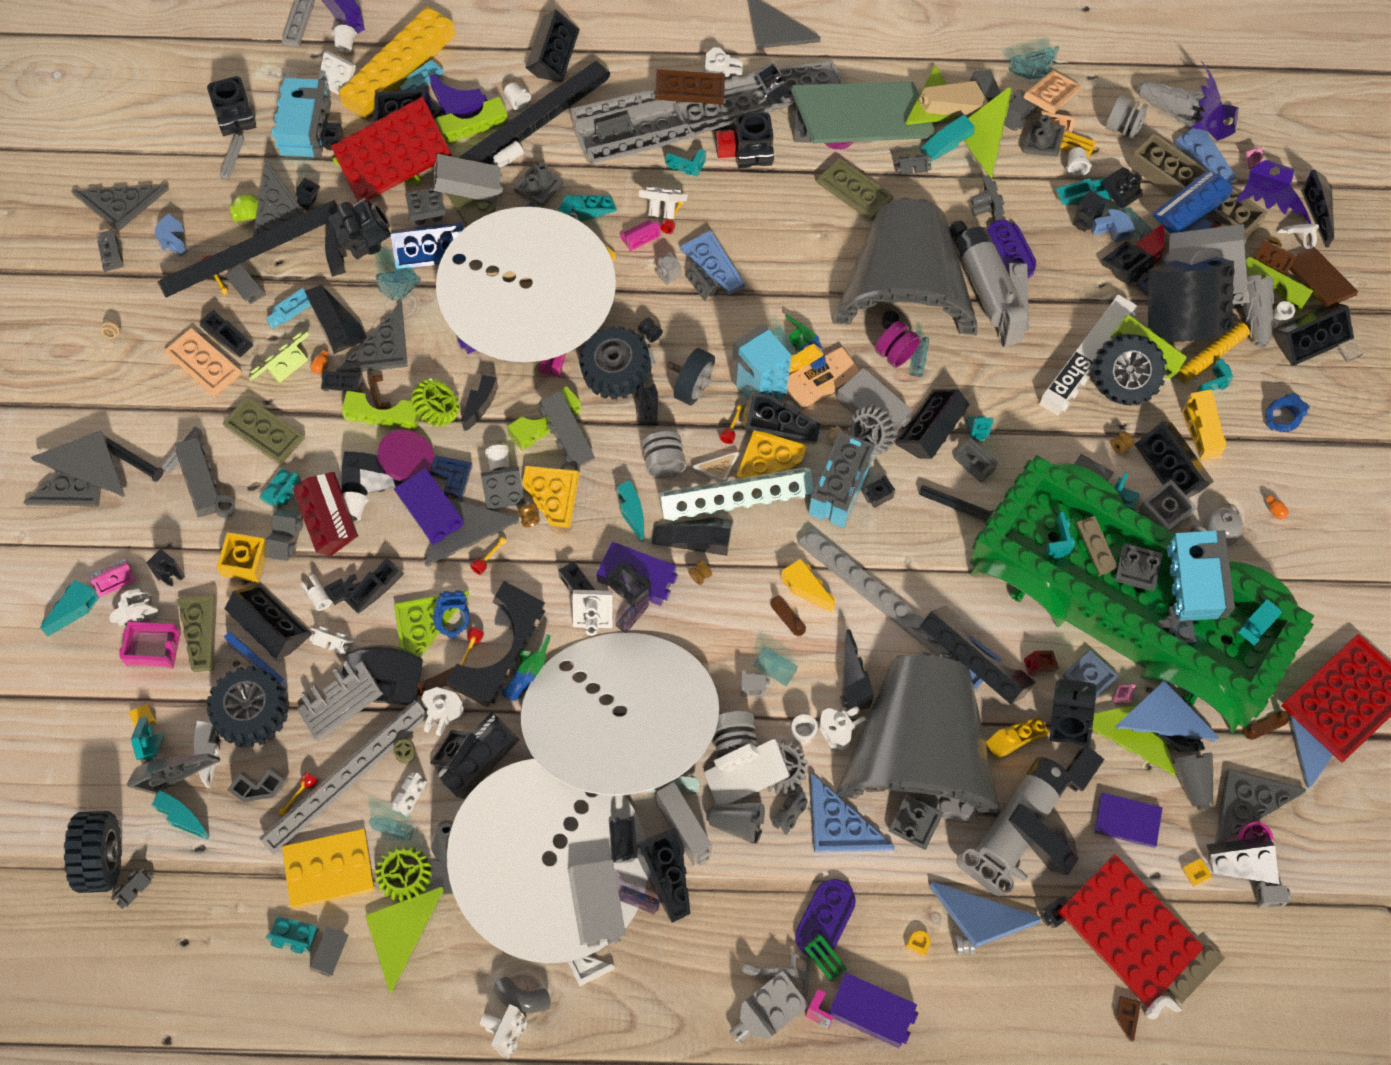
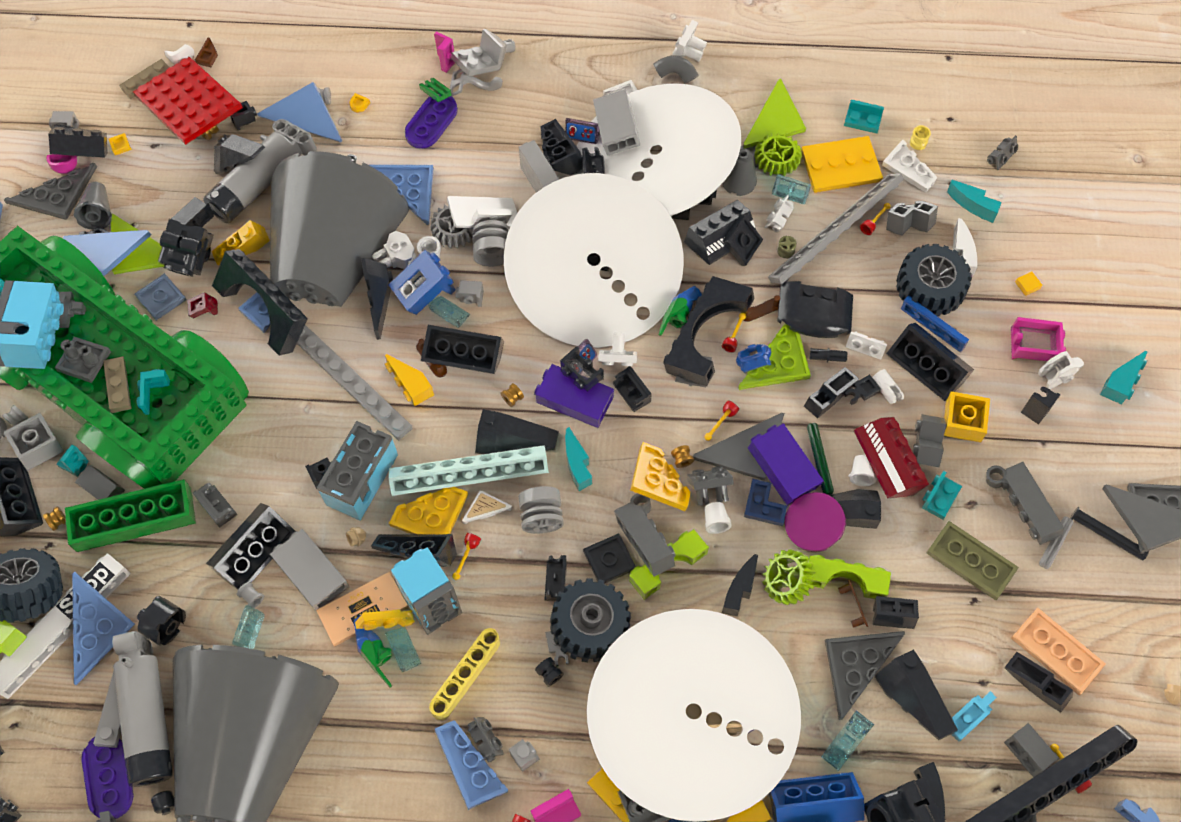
camera: 175 degrees left, 0 degrees up
(92, 851) = (1041, 157): black wheel -> none
(112, 577) = (1093, 409): dark pink panel -> none
(144, 742) = (1018, 252): teal bracket -> none
(161, 773) = (994, 225): dark grey wedge -> none
(199, 621) = (993, 356): olive wing -> none
(226, 898) = (920, 137): none -> light yellow wheel
(248, 862) = (905, 162): none -> white wing
(285, 362) = (966, 644): yellowish green bracket -> none
(319, 362) = (924, 642): orange cylinder -> none
(328, 952) = (832, 103): dark grey hinge -> none
(340, 701) = (849, 284): light grey hinge -> none
(373, 625) = (828, 355): none -> black axle
(393, 519) = (820, 458): none -> dark green axle
(441, 707) = (757, 276): white hinge -> none
(599, 426) = (609, 558): none -> black tile
(693, 376) = (503, 593): black wheel -> none
(726, 319) = (464, 684): none -> light yellow beam
(738, 819) = (495, 182): dark grey cone -> none
(754, 614) = (462, 349): none -> black slope
(795, 805) = (454, 187): dark grey hinge -> none
(805, 686) = (425, 279): none -> brick
(873, 1010) = (403, 57): dark purple brick -> none
(882, 433) = (316, 529): light grey gear -> none
(897, 344) = (269, 632): magenta wheel -> none
(923, 383) = (250, 595): none -> light grey bush
(955, 503) = (245, 460): black axle -> none
(979, 427) = (203, 539): teal bracket -> none
(996, 352) = (160, 621): none -> black brick
(1052, 440) = (129, 515): none -> green brick
(1054, 351) = (93, 626): none -> medium blue tile
(1125, 693) = (134, 277): bright pink slope -> none
(1128, 820) = (163, 182): dark purple tile -> none

